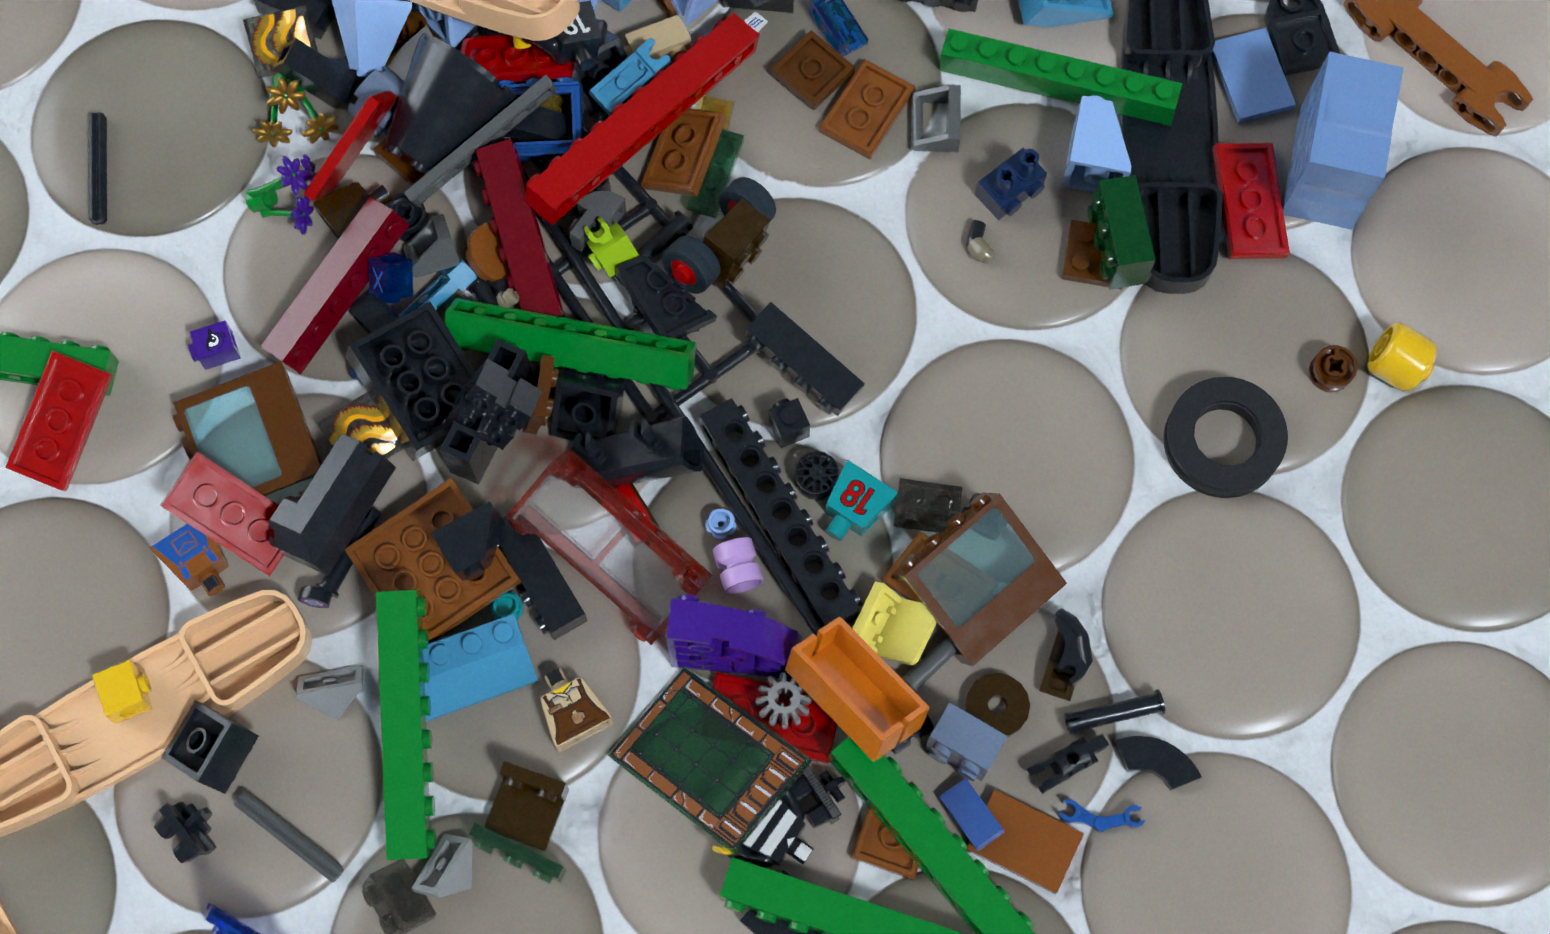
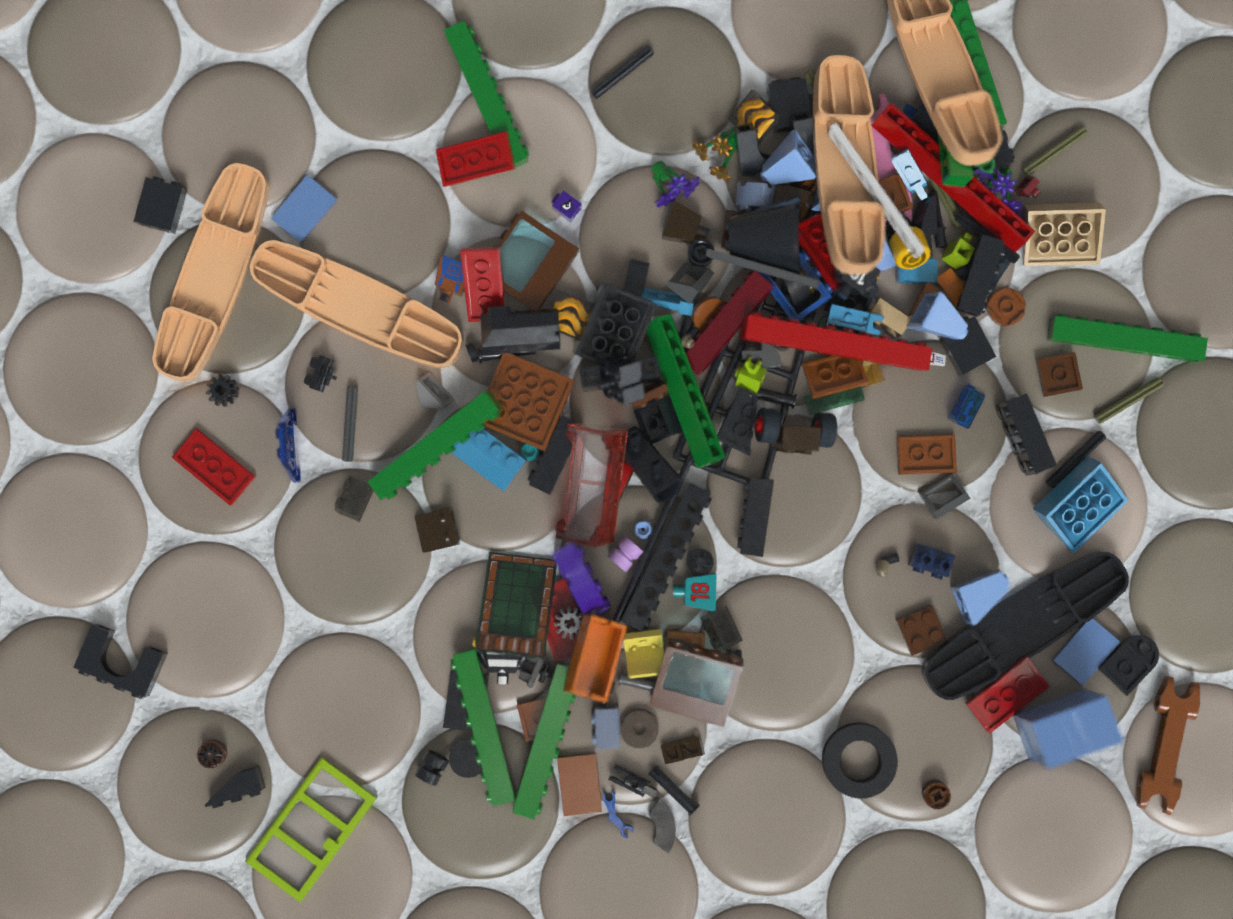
camera: 60 degrees right, 15 degrees up
(123, 691) = (364, 294): yellow head -> none
(210, 747) = (365, 356): black slope -> none
(334, 286) = (636, 247): brick -> none
(350, 145) = (717, 202): red tile -> none
(391, 277) = (658, 273): clear blue brick -> none
(447, 868) = (383, 511): light grey slope -> none
(471, 541) = (543, 417): black slope -> none
(516, 854) = (411, 541): clear green plate -> none
(572, 710) = (498, 519): torso -> none
(789, 422) = (719, 529): black brick -> none
(812, 70) = (929, 410): reddish brown plate -> none
(972, 814) = (575, 750): blue tile -> none
(1058, 76) = (1012, 549): green brick -> none
(1077, 648) = (693, 752): black piece -> none
(1121, 232) = (935, 640): dark green brick -> none
(1402, 357) = (965, 828): yellow head -> none

